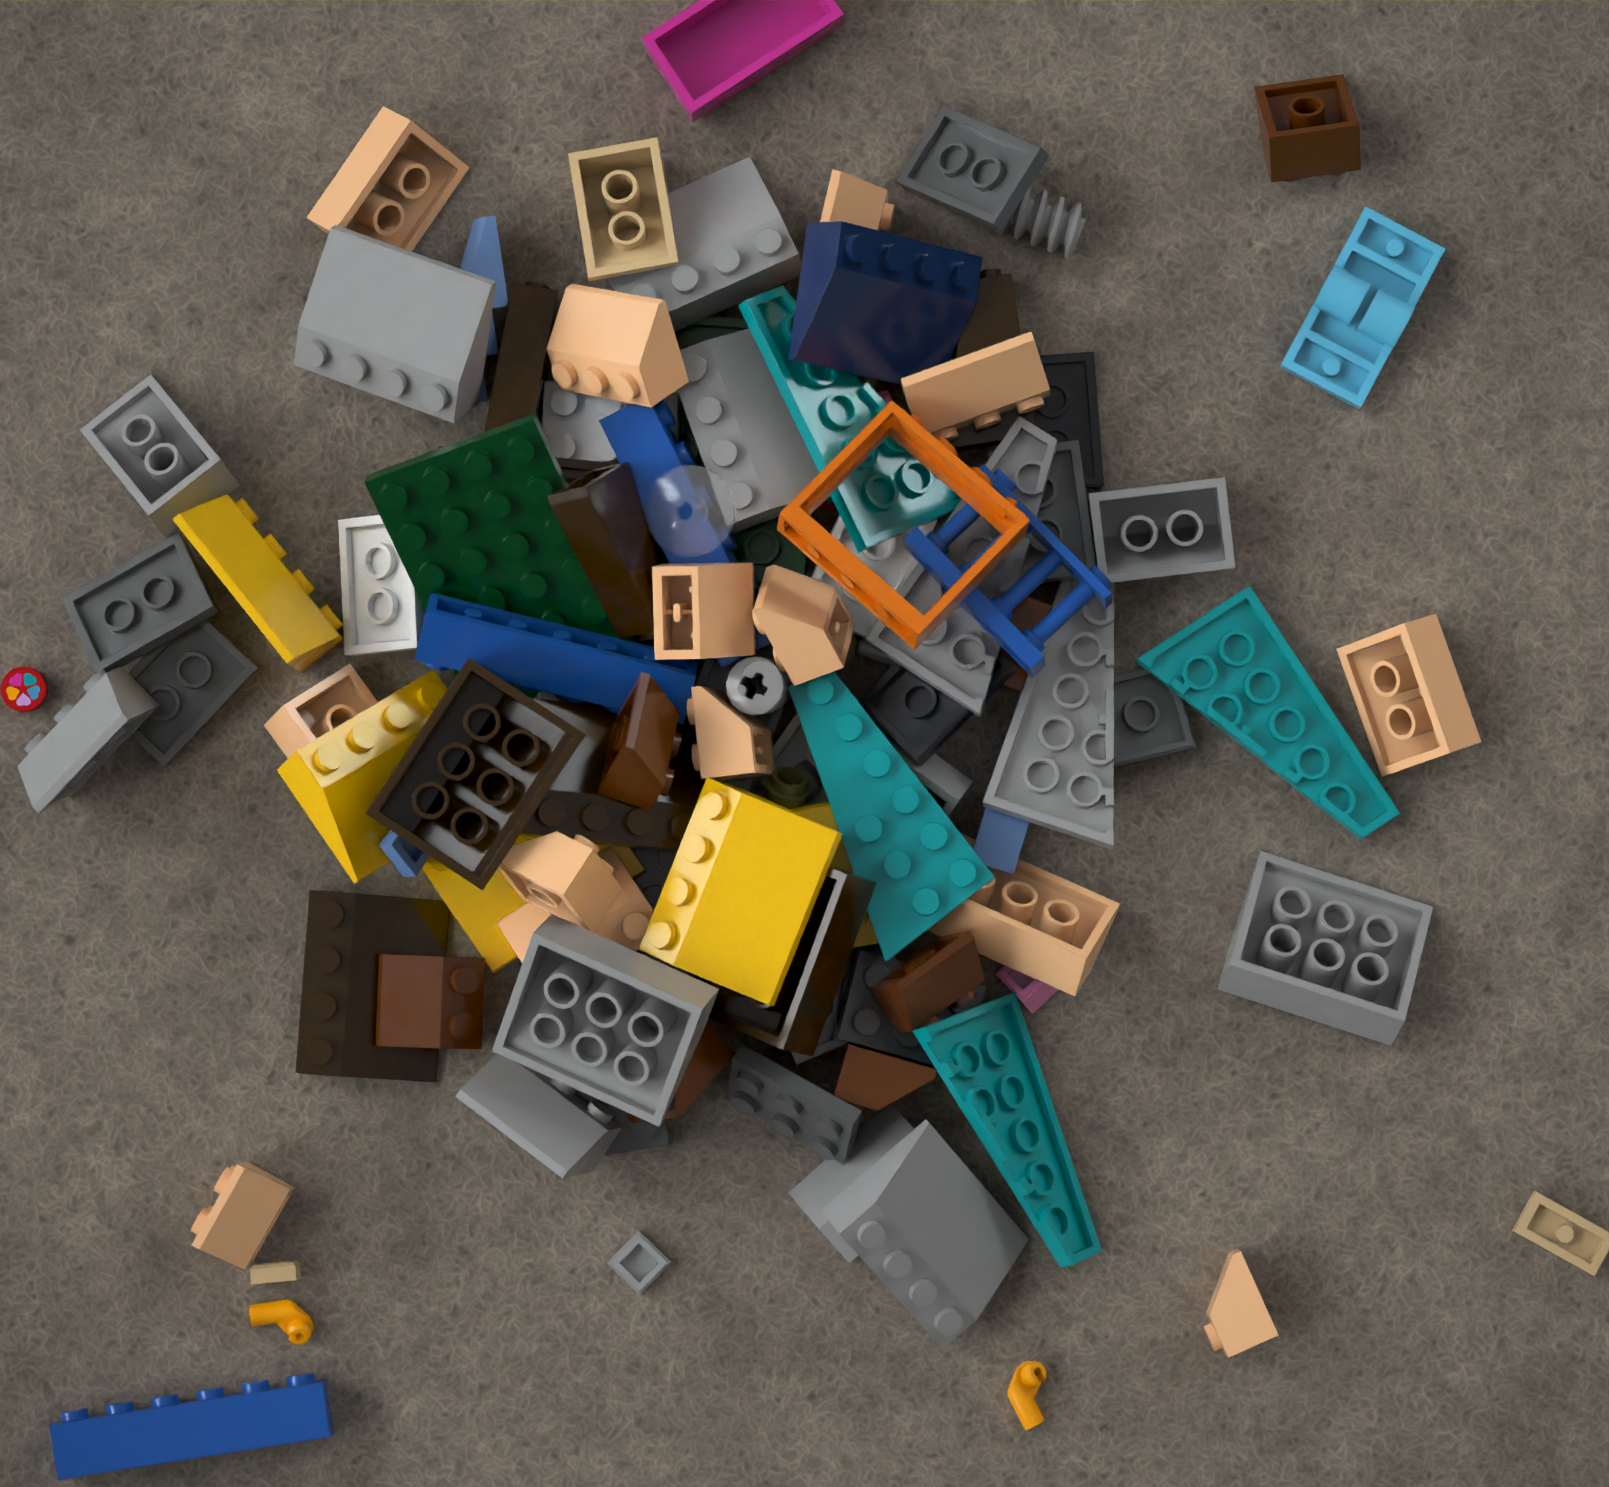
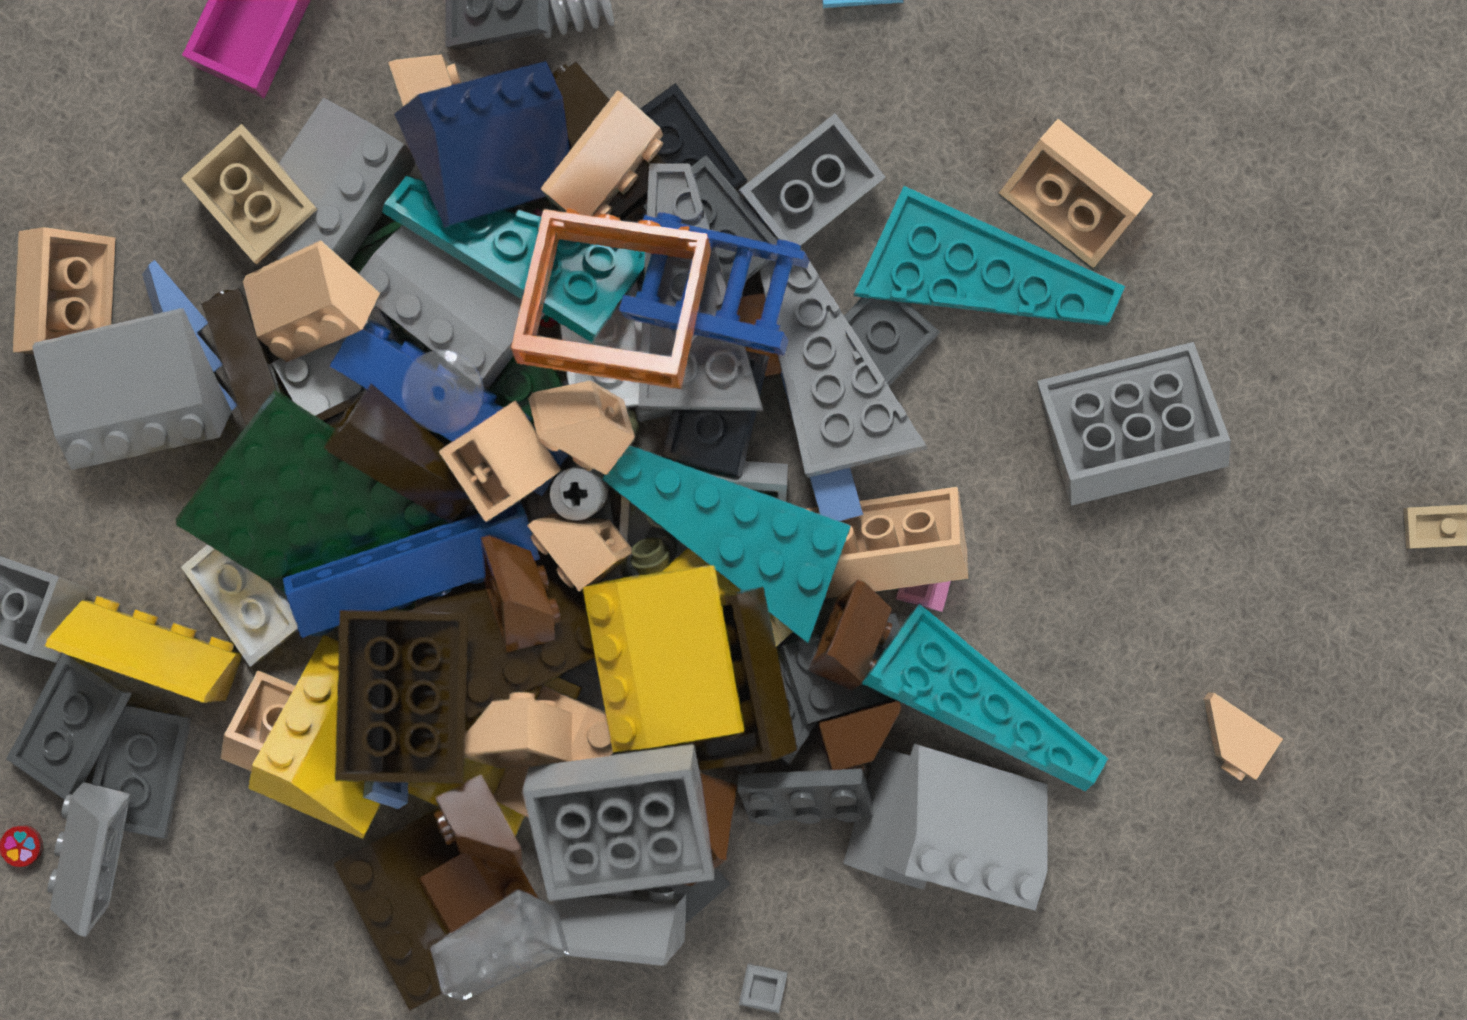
camera: 30 degrees left, 0 degrees up
(419, 1063) = (499, 946): none -> clear wedge
(470, 937) = (476, 824): none -> slope
(1023, 1390) = (1115, 902): light orange arm -> none

